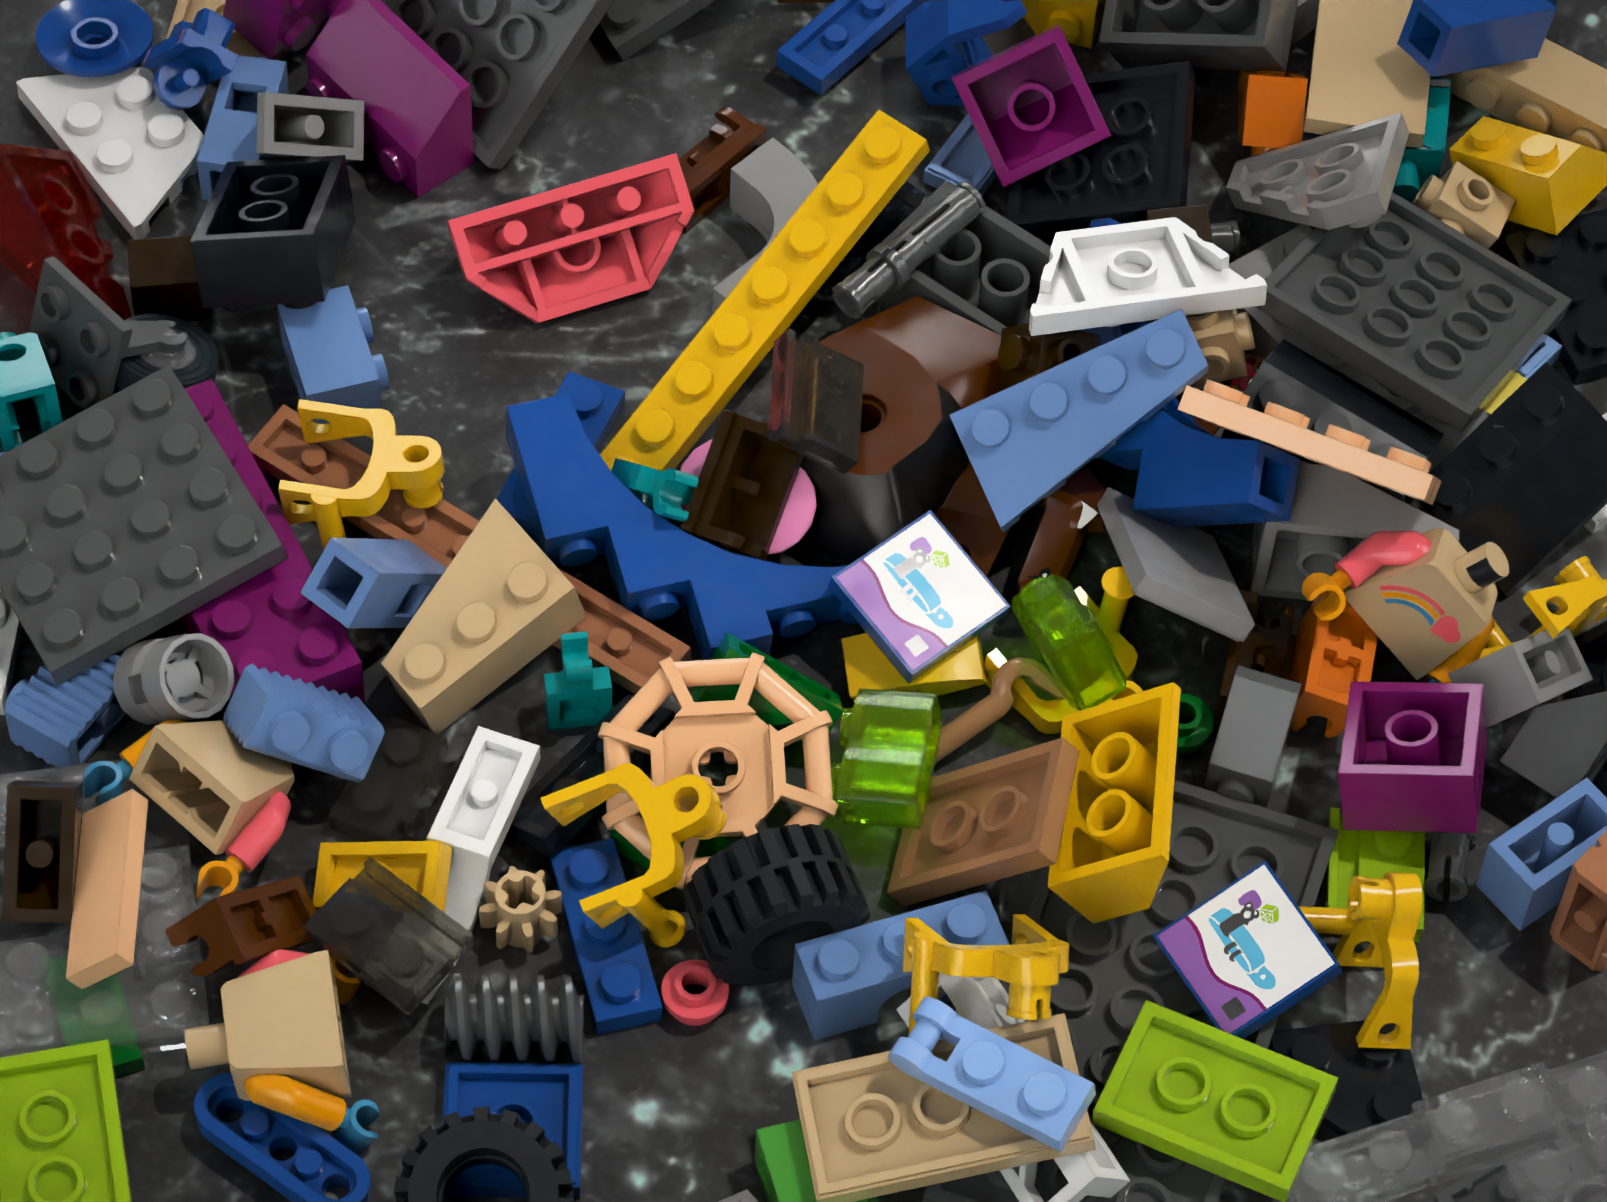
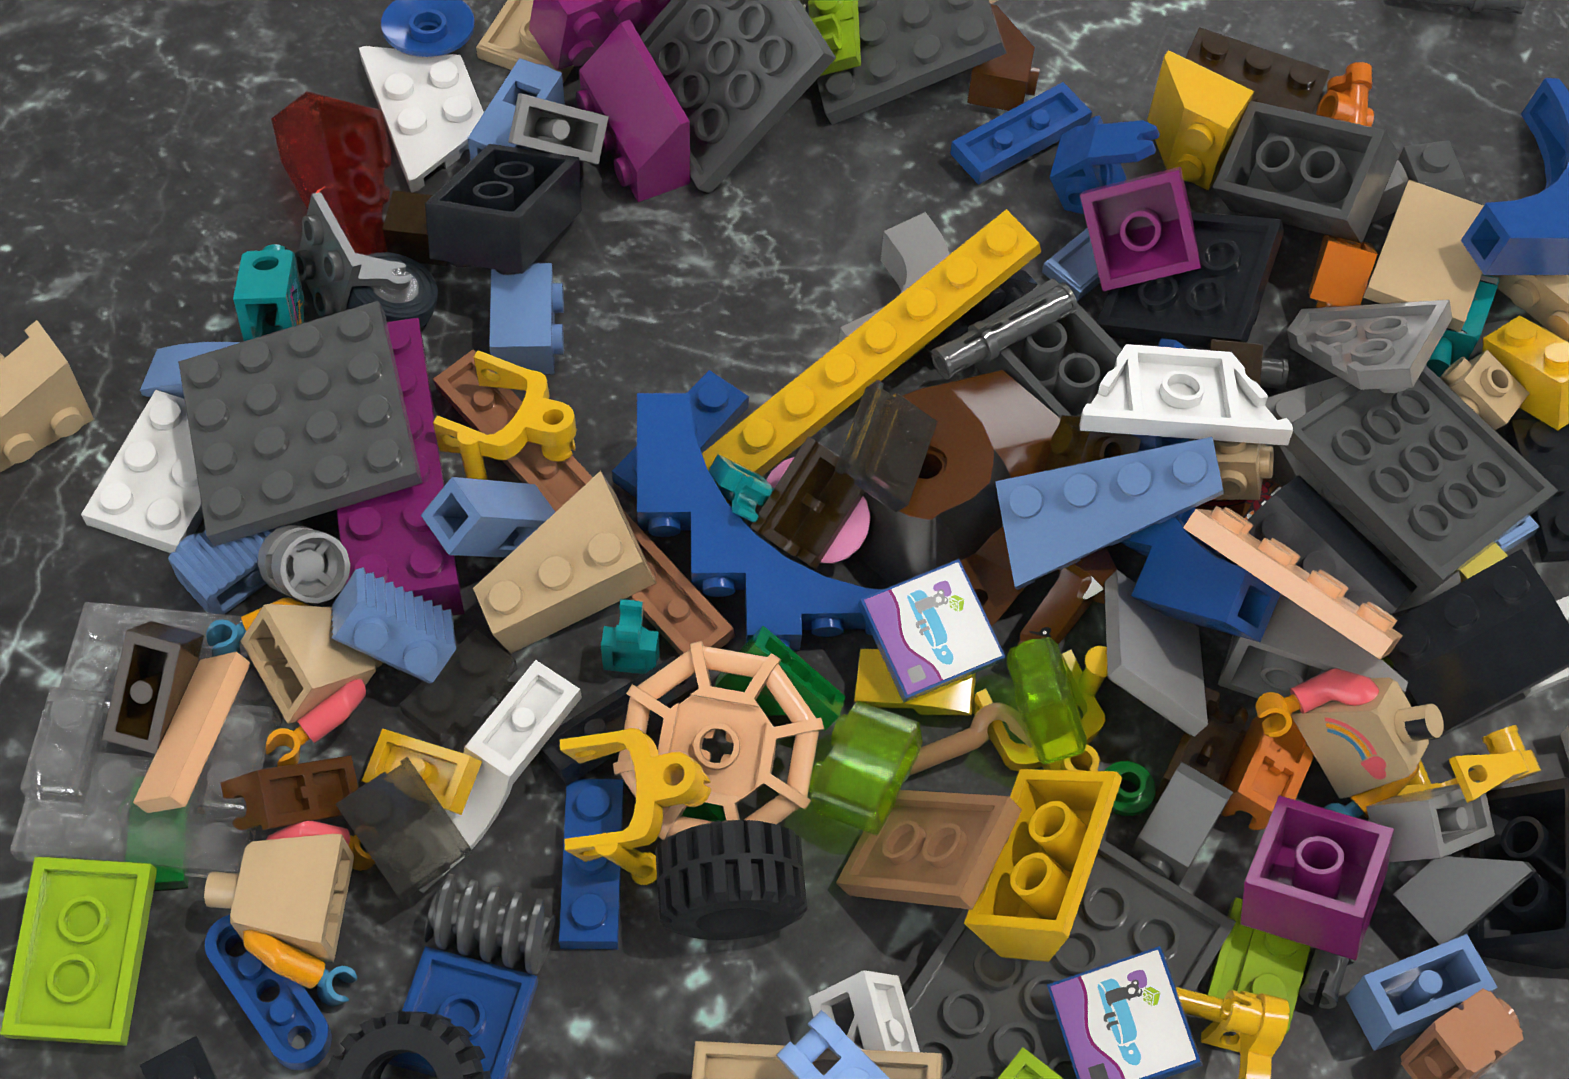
camera: 15 degrees right, 5 degrees up
(191, 59) = (488, 57): blue hips -> none
(520, 909) = (523, 839): tan gear -> none
(576, 241) = (743, 264): coral wedge -> none
(688, 1007) = (646, 949): coral plate -> none
(710, 161) = (860, 234): reddish brown hinge -> none
(855, 971) = (789, 952): medium blue arch -> none
(1027, 967) = (914, 1002): yellow piece -> none

